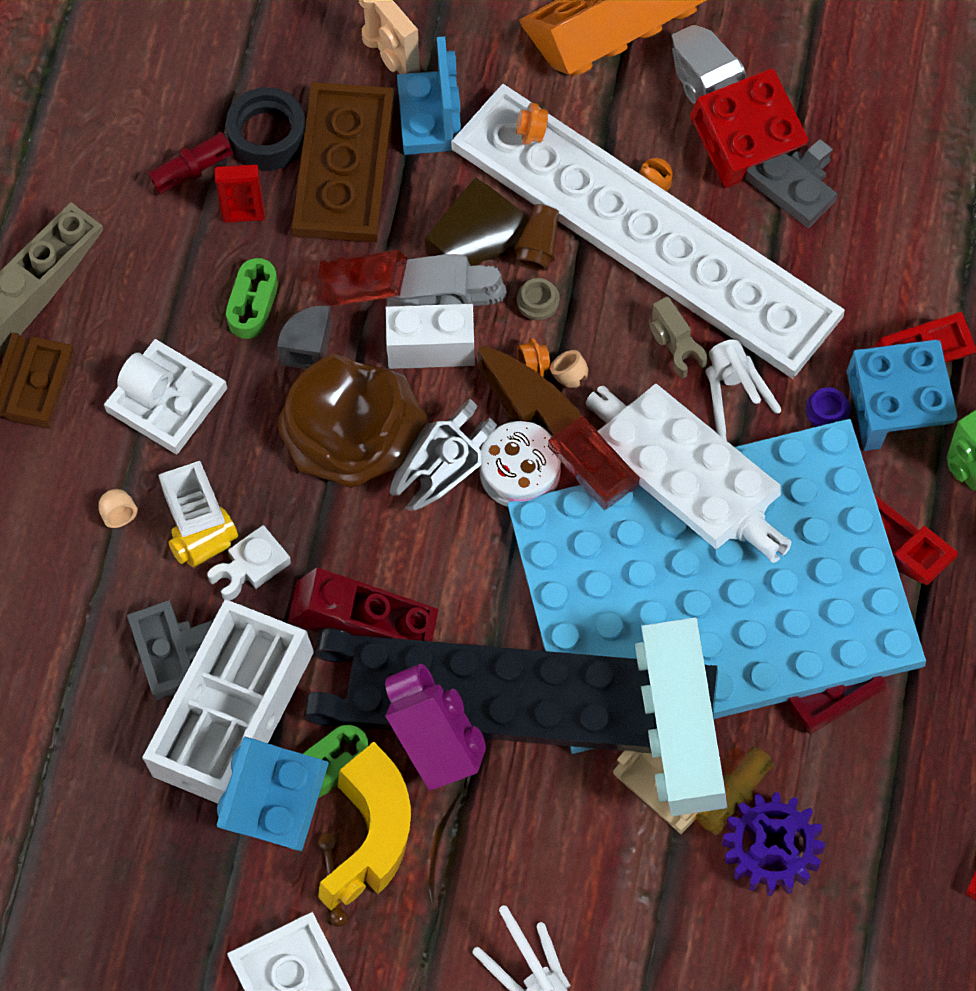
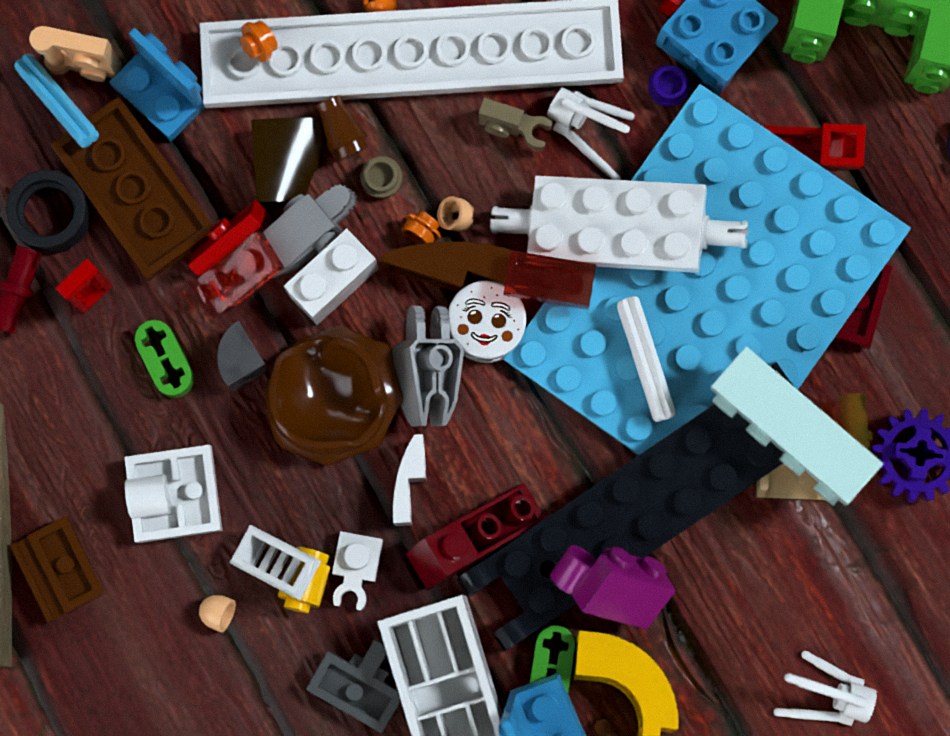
camera: 40 degrees left, 15 degrees up
(345, 55) = (56, 100): none -> medium azure axle
(357, 523) = (411, 470): none -> white slope
(376, 241) = (226, 236): none -> red plate
(616, 584) = (646, 359): none -> white axle

